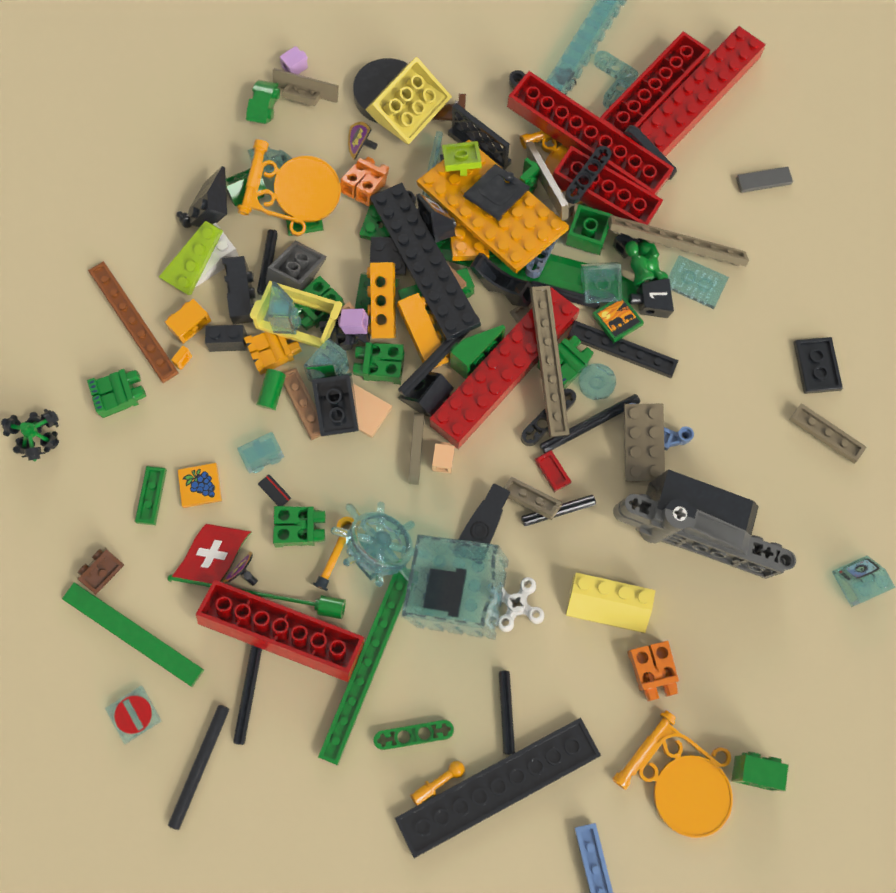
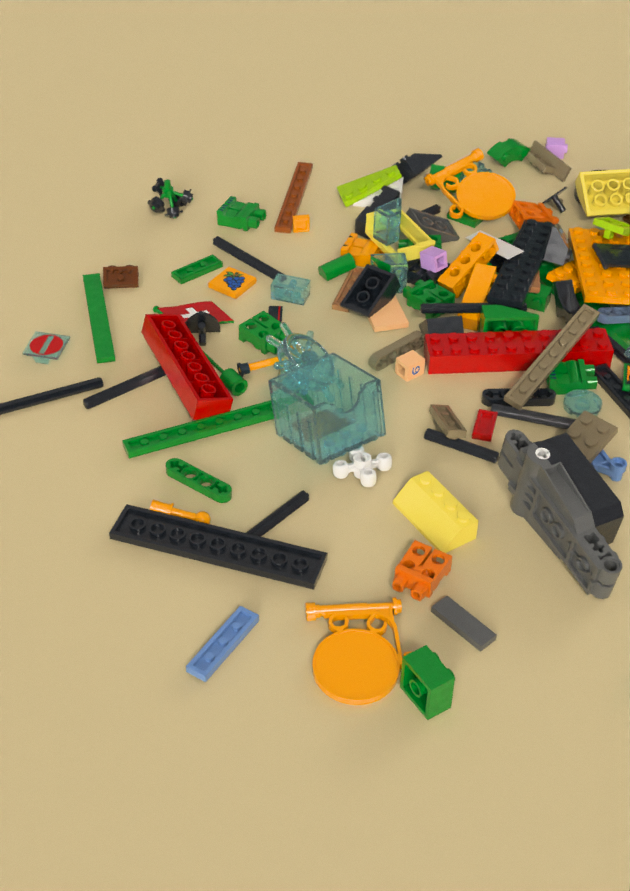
camera: 45 degrees right, 30 degrees down
(183, 443) = (245, 257): none -> black axle
(187, 321) = (327, 209): light orange brick -> none
(225, 338) = (338, 228): black brick -> none
(376, 252) = (505, 249): none -> white sticker
(486, 517) = (406, 411): black piece -> none
(719, 686) = (463, 623): none -> dark grey tile

